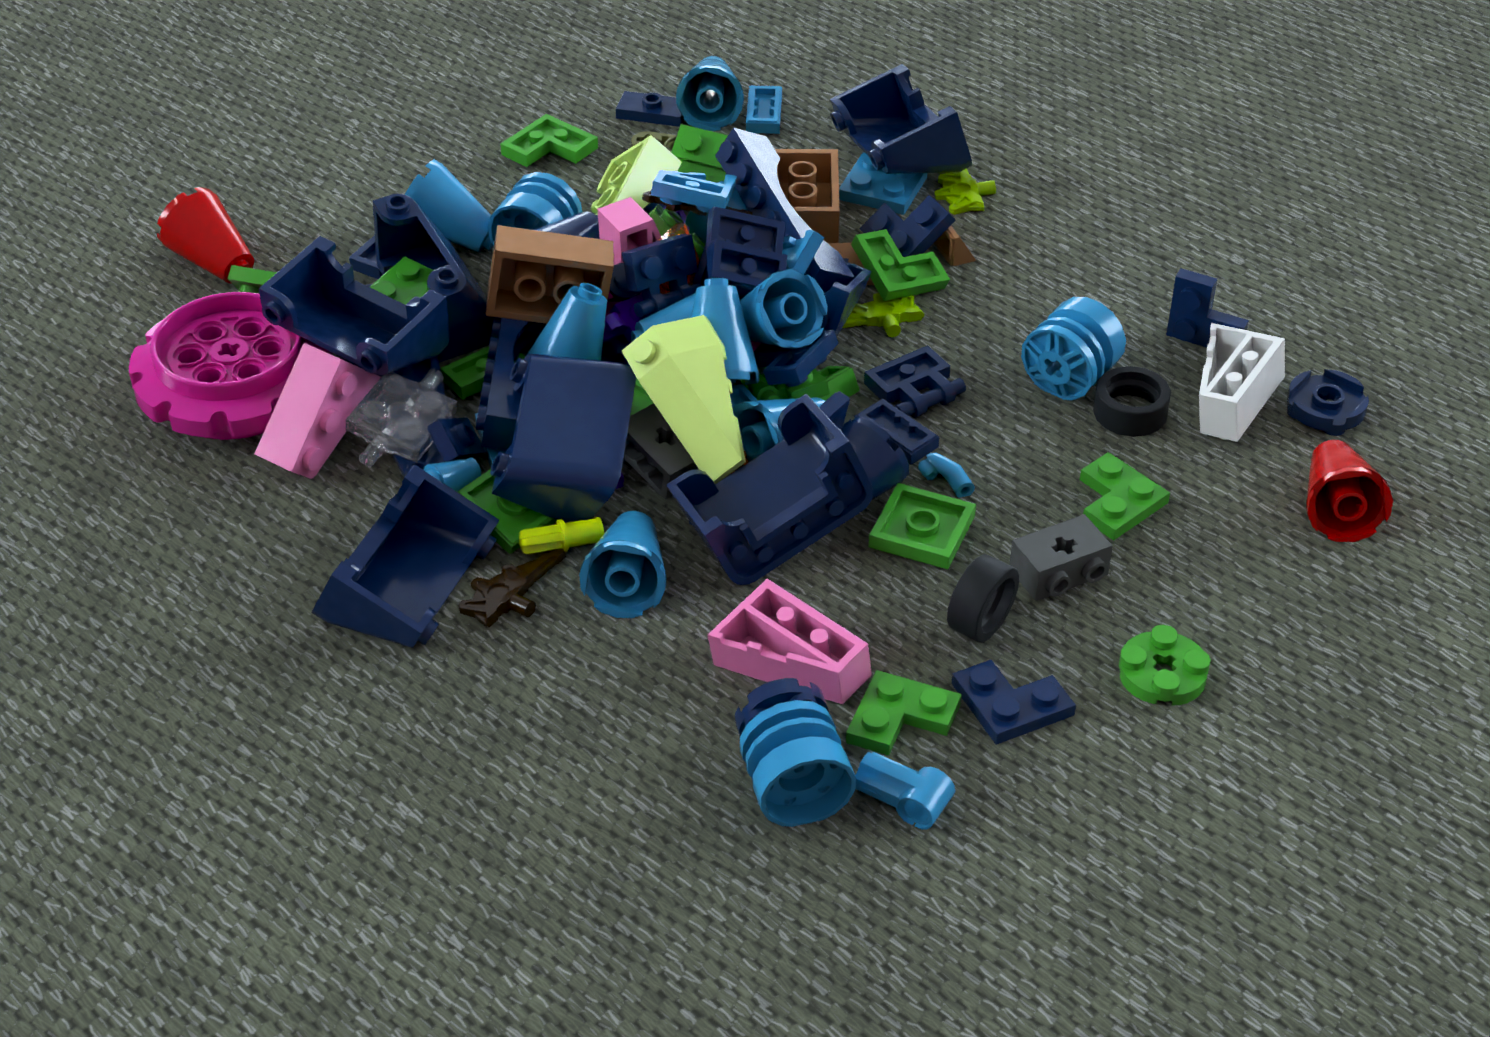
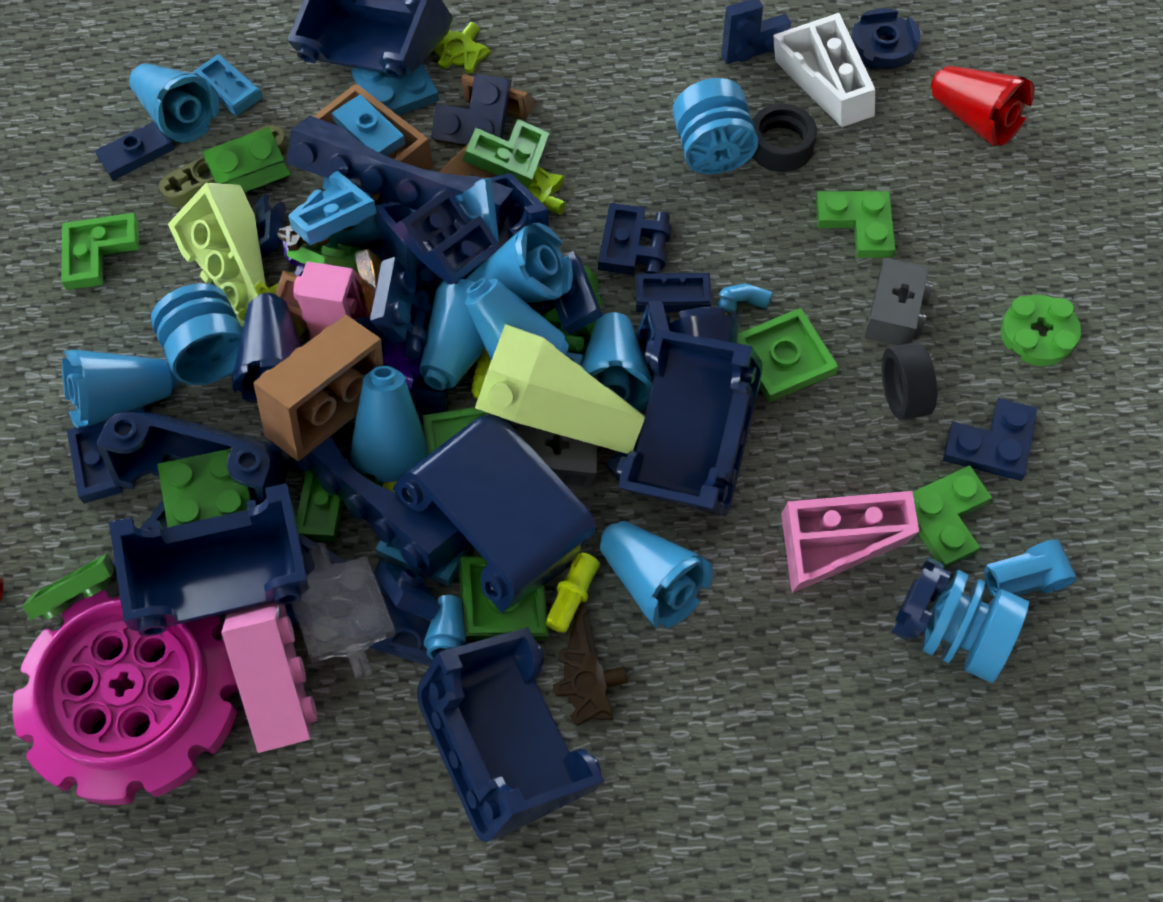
camera: 45 degrees left, 20 degrees up
(803, 176) = (368, 126): none -> dark azure plate

